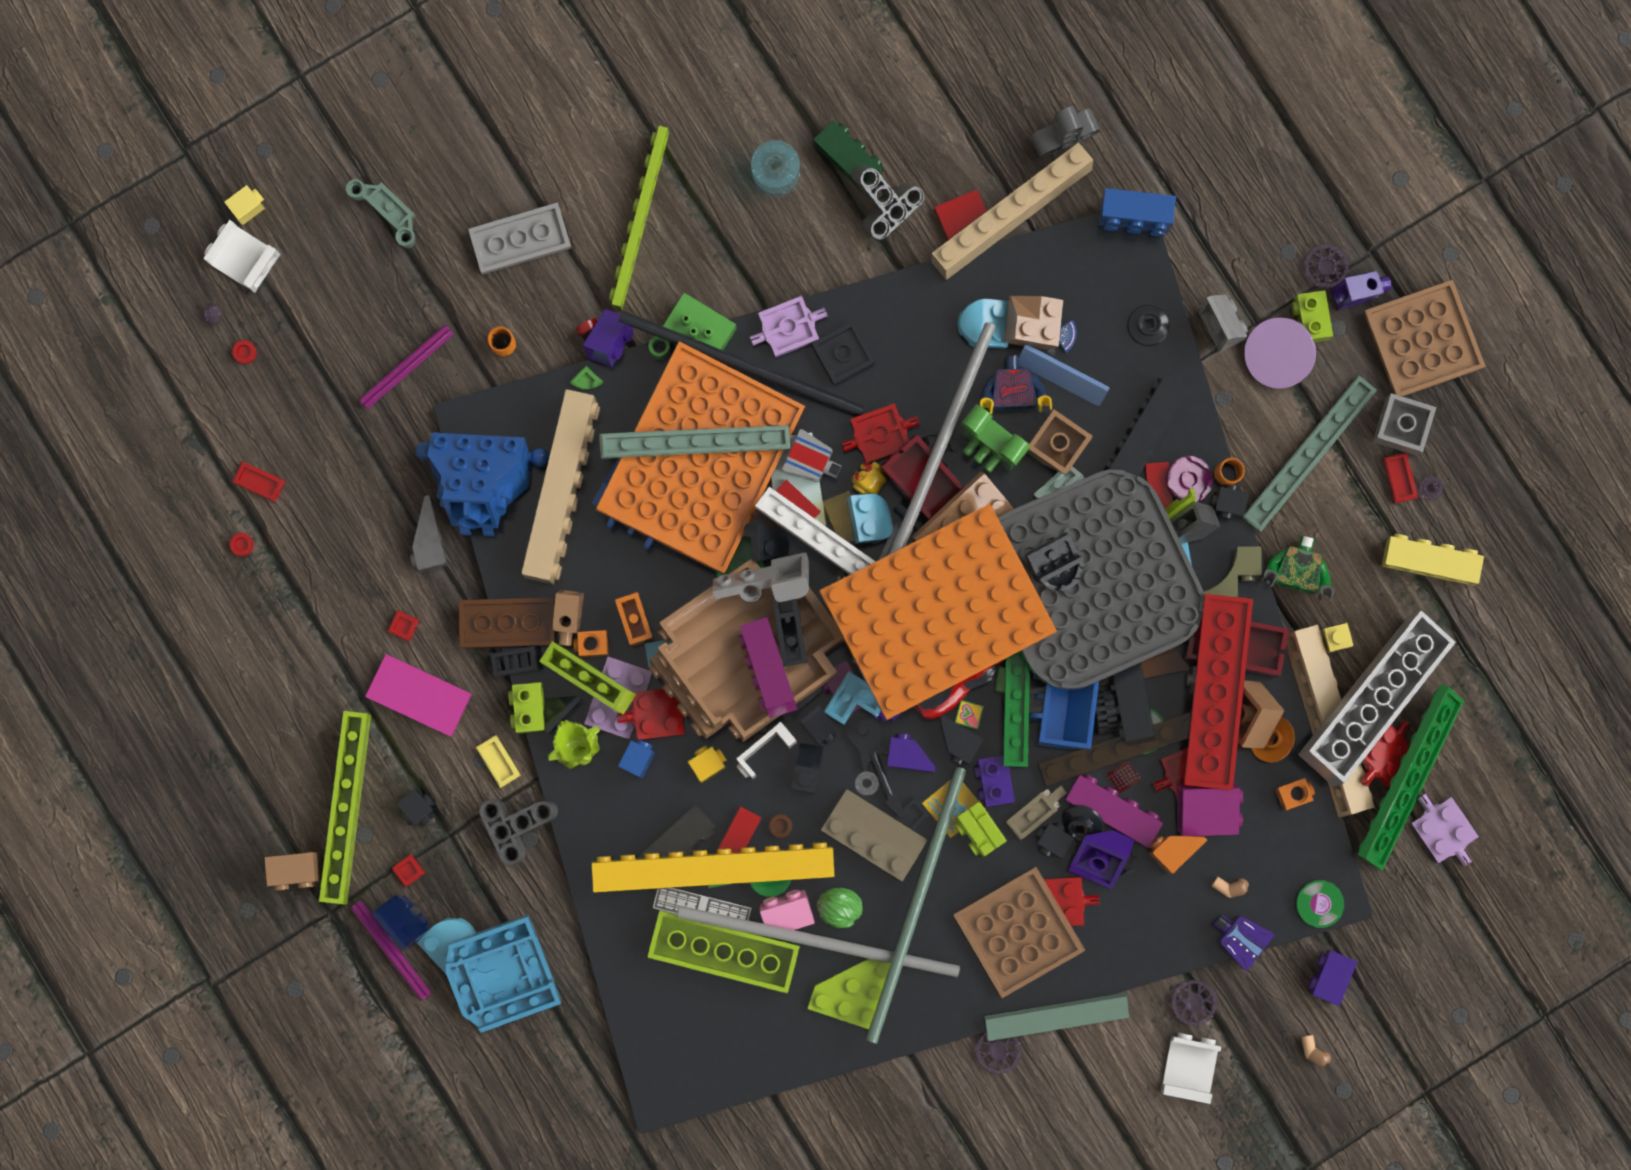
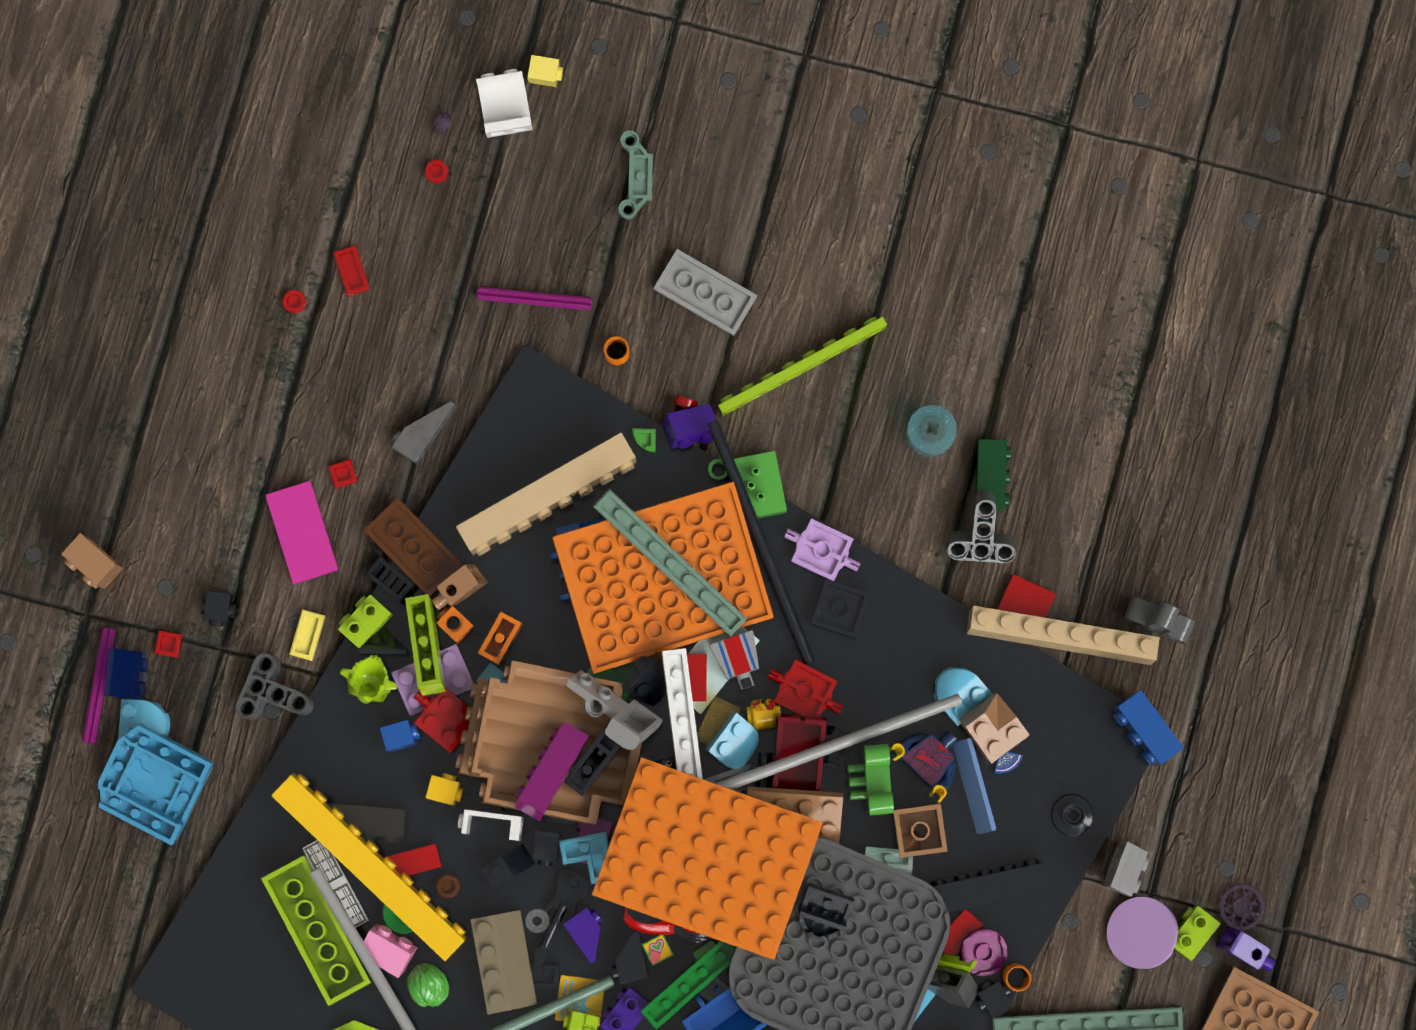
camera: 45 degrees right, 0 degrees up
(345, 807) = (170, 556): lime brick -> none
(479, 475) = (500, 428): blue piece -> none

